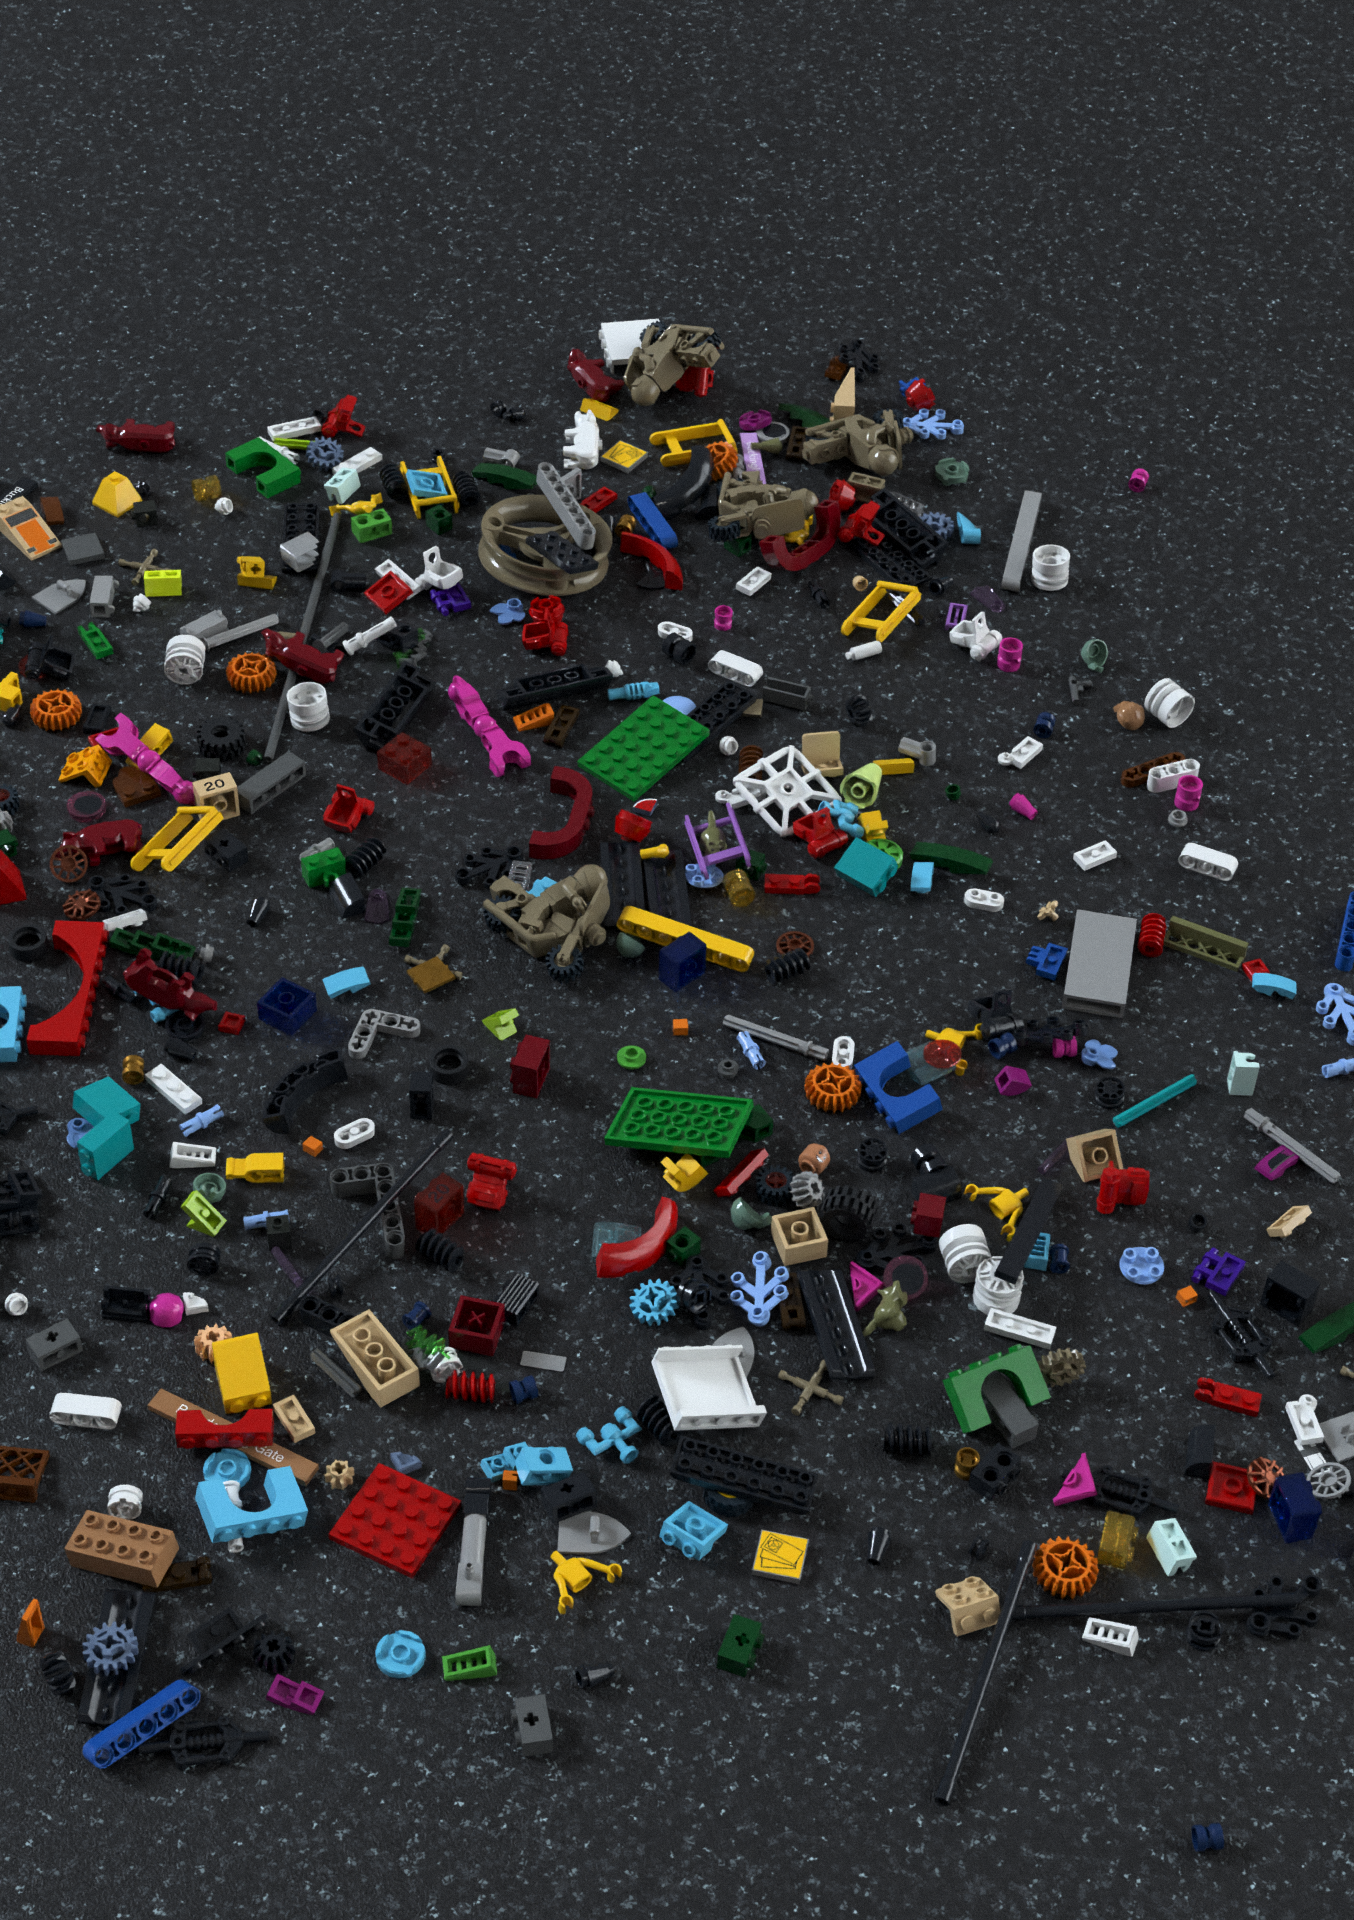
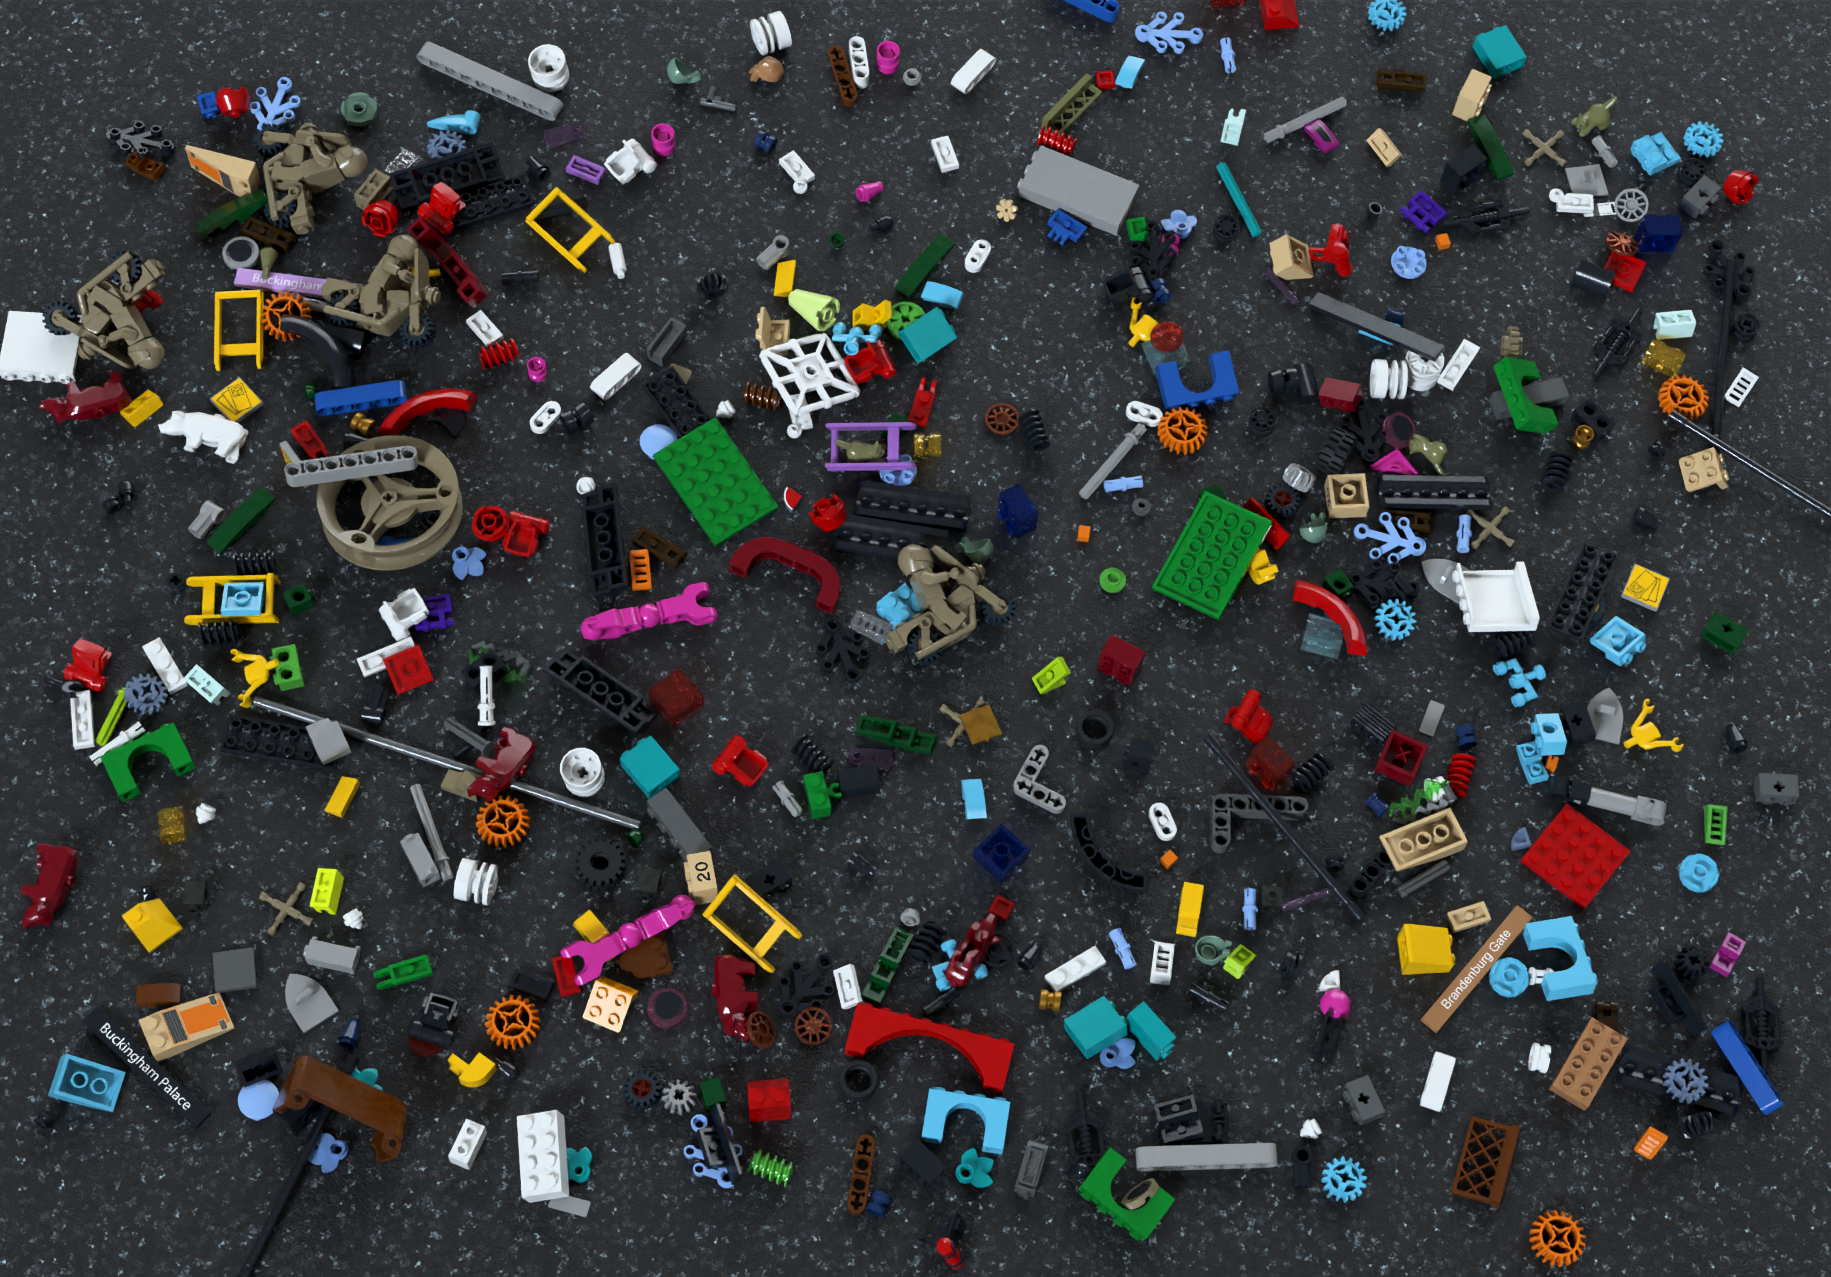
camera: 80 degrees left, 20 degrees up
(204, 1340) = (1387, 964): light nougat gear -> none
(251, 566) = (328, 796): yellow piece -> none
(252, 1430) = (1483, 946): red arch -> none
(328, 753) = (649, 766): none -> teal brick
(339, 1474) = (1534, 885): tan gear -> none
(562, 552) = (432, 485): black plate -> none
(634, 691) = (625, 472): medium azure hinge -> none
(655, 852) = (871, 502): yellow arm -> none
(665, 931) = (985, 503): yellow beam -> none
(728, 590) = (498, 353): none -> red piece
(754, 421) = (217, 263): magenta tile -> none
(792, 1359) = (1464, 533): none -> light blue pin
(814, 1158) = (1262, 464): nougat head -> none
(860, 585) = (512, 237): tan hinge -> none
(1002, 1205) = (1332, 340): yellow piece -> none
(1012, 1081) = (1200, 295): magenta brick -> none
(1071, 1014) = (1137, 229): none -> green plate
(1078, 1484) = (1611, 367): dark pink tile -> none
(1228, 1397) = (1543, 243): red hinge -> none

